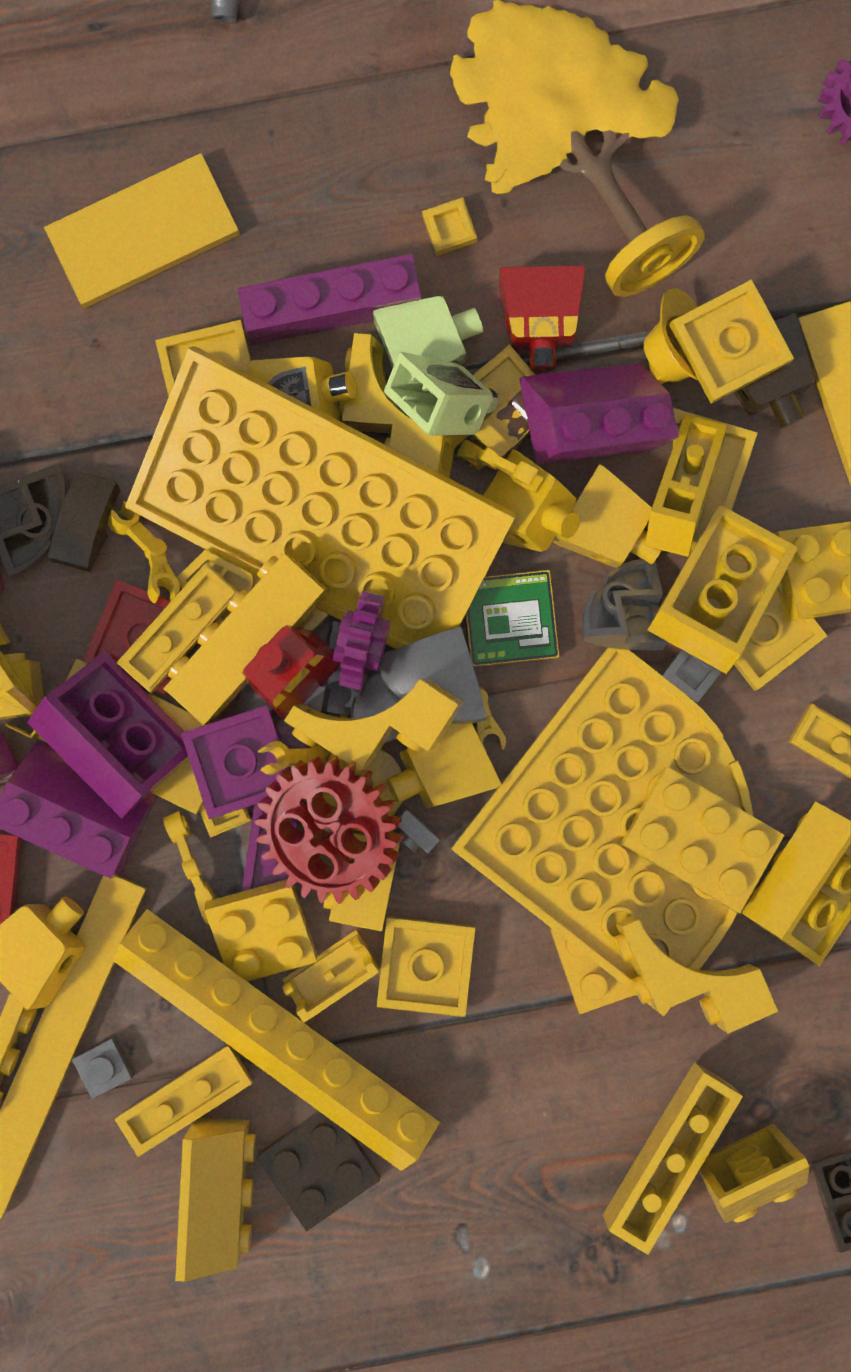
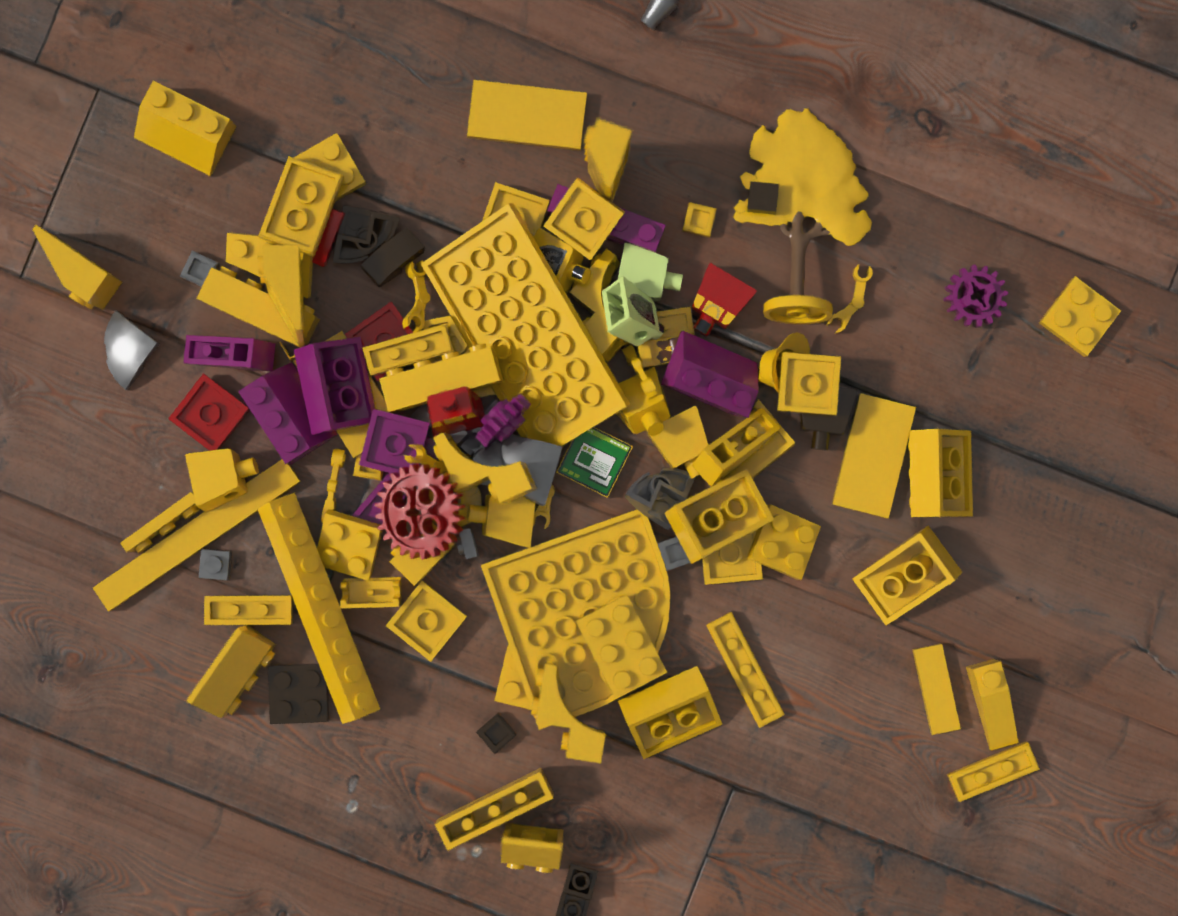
camera: 30 degrees right, 0 degrees up
(276, 203) = (607, 154): none -> yellow slope
(301, 308) = (584, 218): none -> yellow plate
(516, 141) = (763, 198): none -> dark brown tile
(608, 1054) = (496, 733): none -> dark brown tile
(718, 203) = (857, 301): none -> yellow piece

